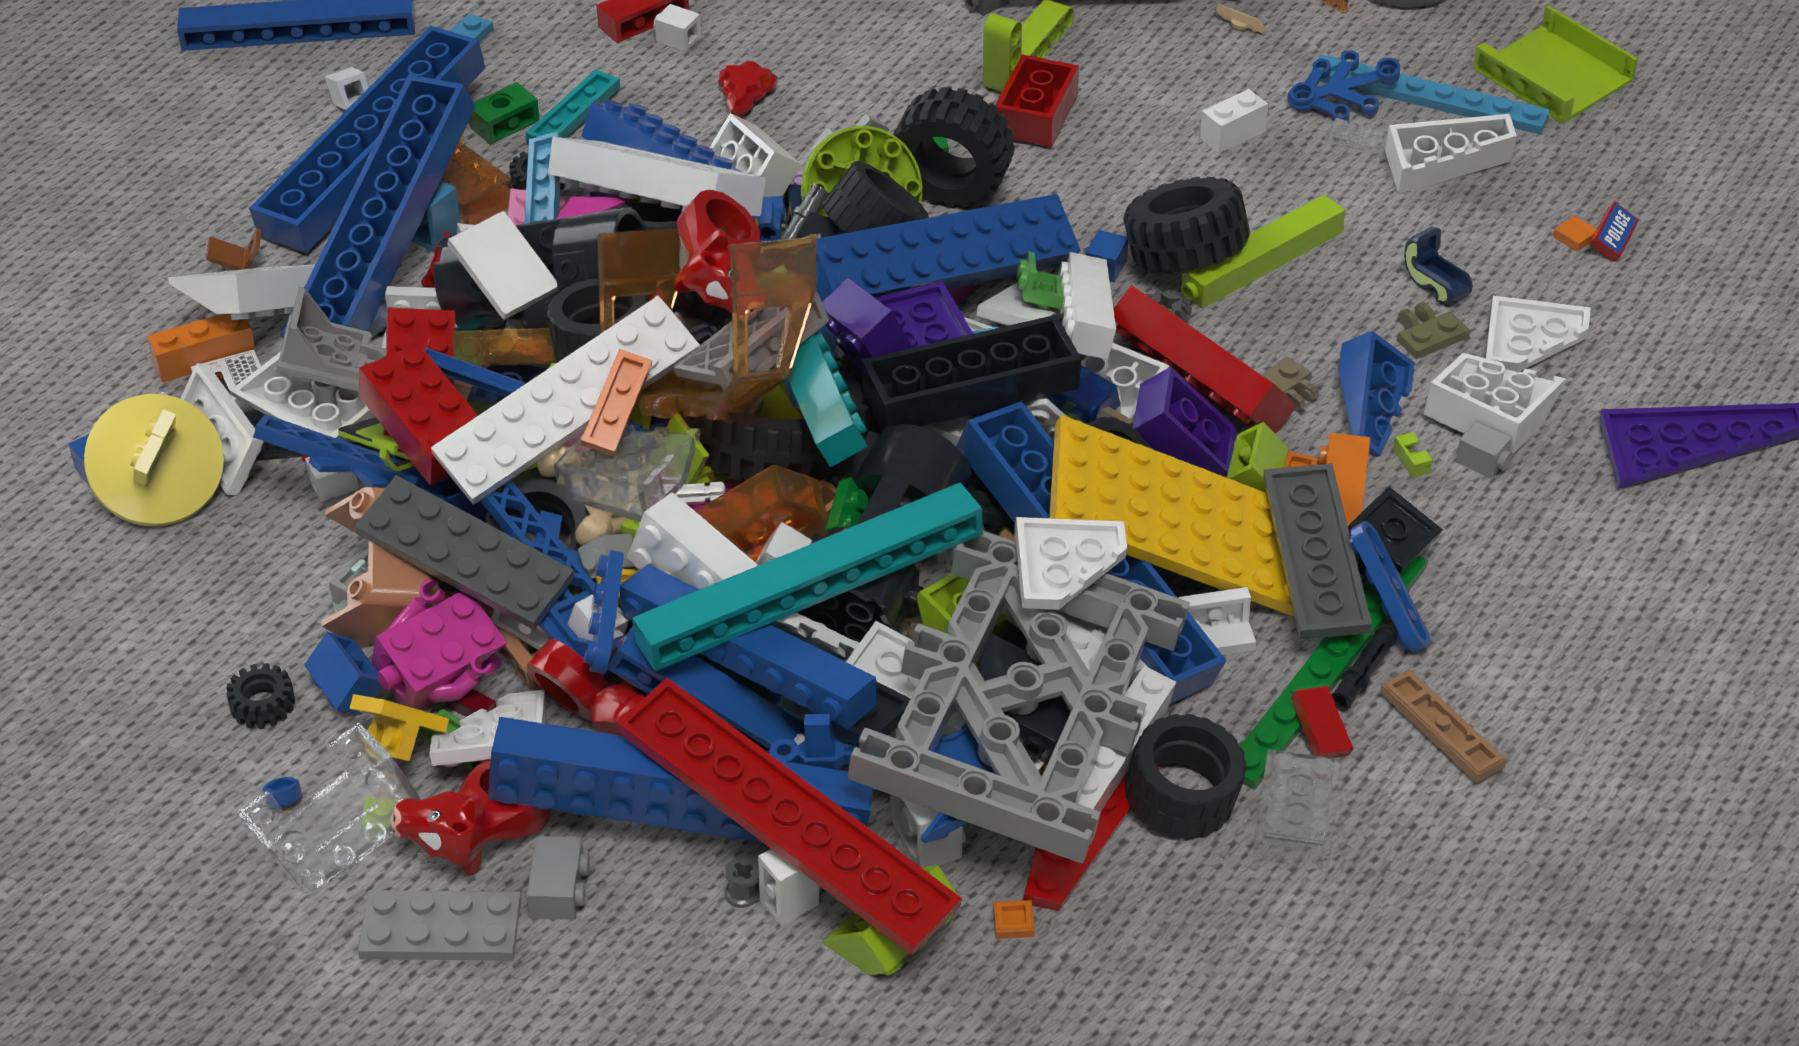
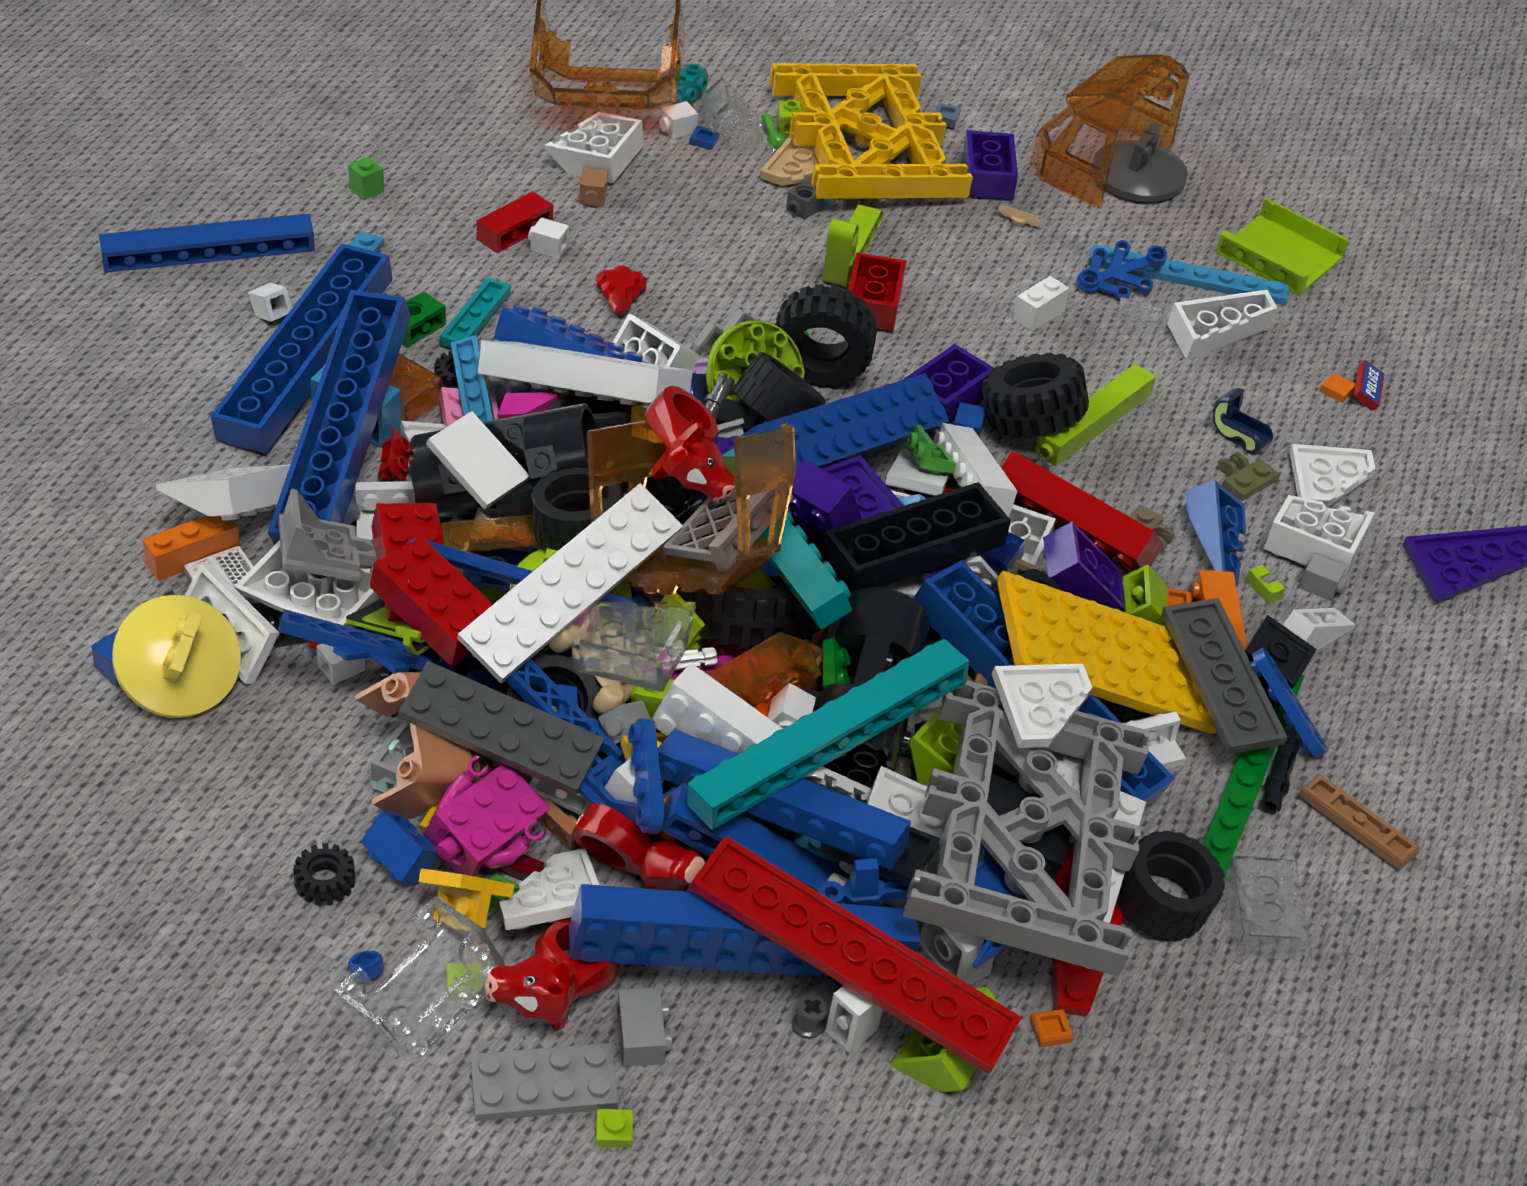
camera: 15 degrees left, 0 degrees up
(231, 255) = (201, 460): dark orange bracket -> none
(502, 978) = (614, 1128): none -> lime plate
(616, 402) = (622, 583): orange plate -> none
(1097, 203) = (955, 378): none -> dark purple brick
(1322, 722) = (1262, 827): red tile -> none
(1458, 506) = (1318, 625): none -> white slope

